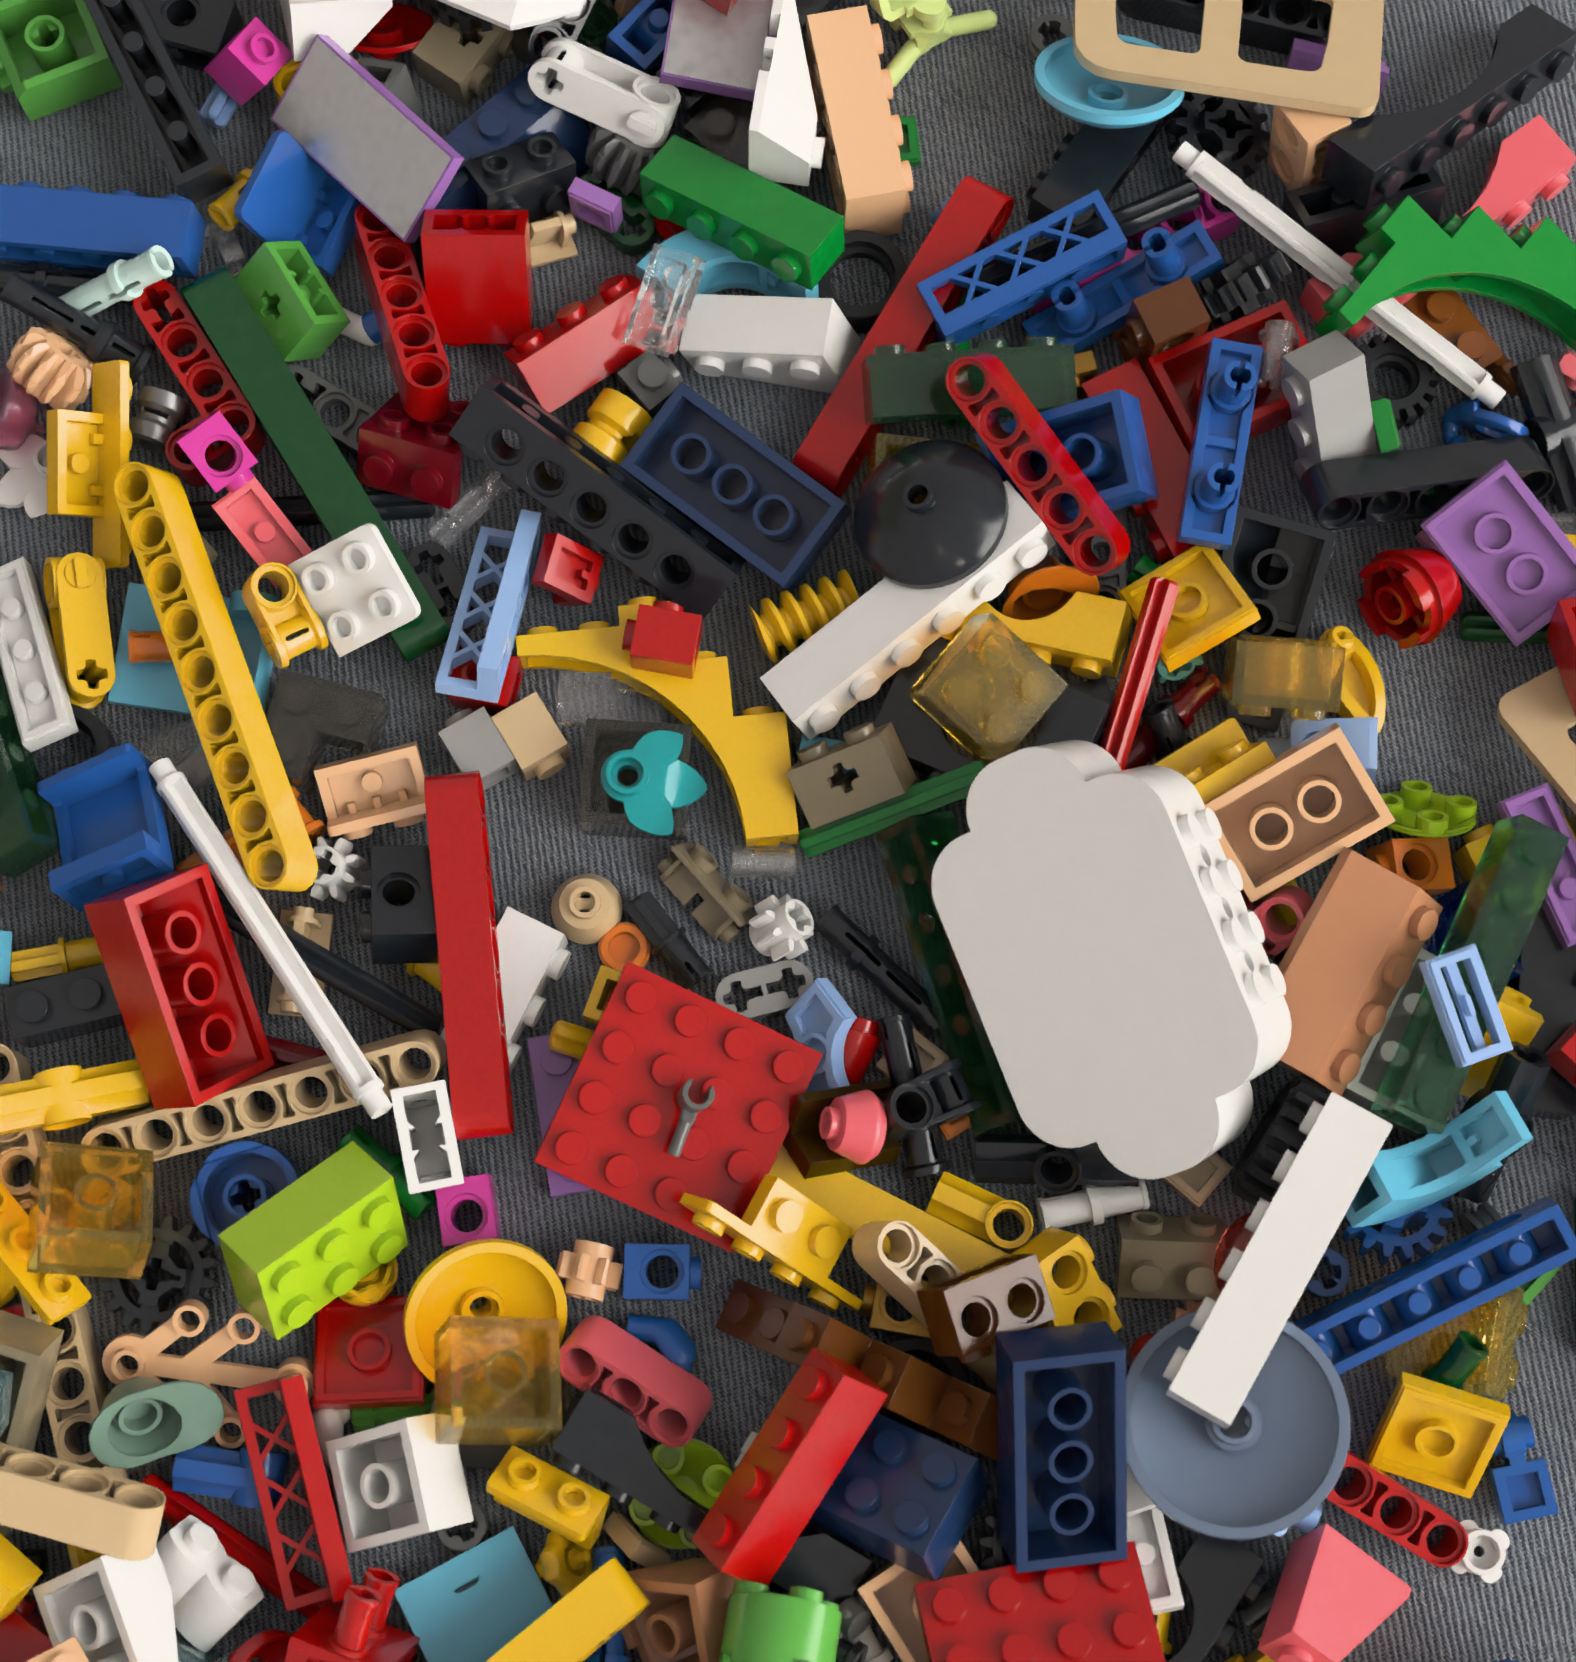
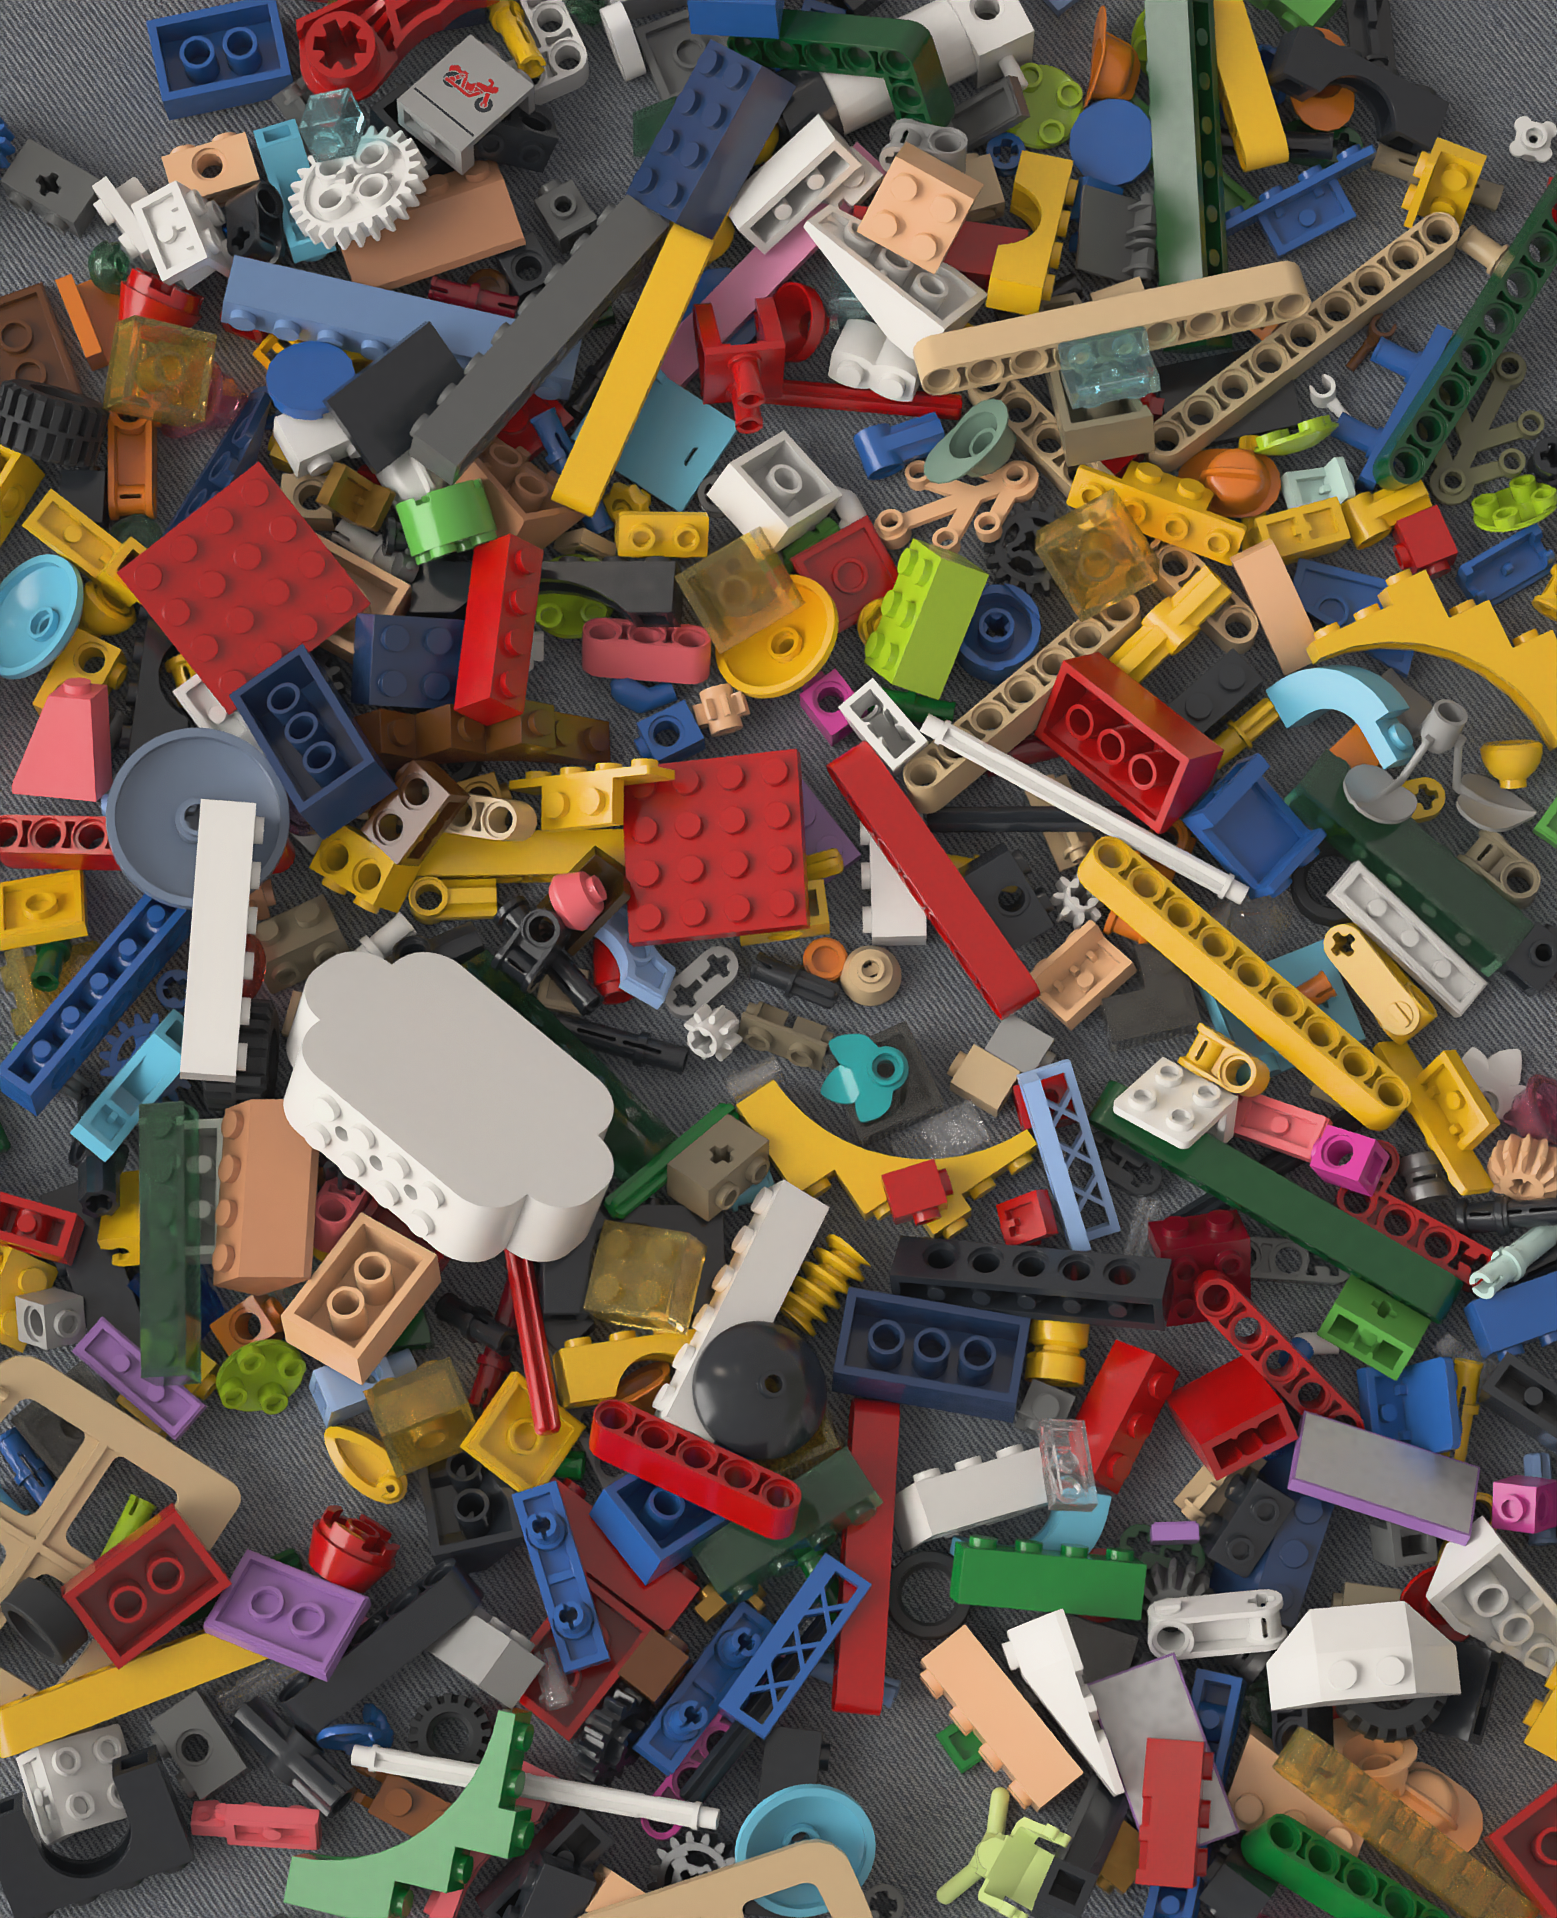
camera: 160 degrees right, 0 degrees up
(315, 1487) = (828, 456): red fence -> none
(687, 1116) = (701, 836): dark grey hand -> none
(1218, 759) = (443, 1307): yellow bracket -> none
(1384, 426) = (438, 1675): green tile -> none
(1446, 1012) = (191, 1224): light blue tile -> none

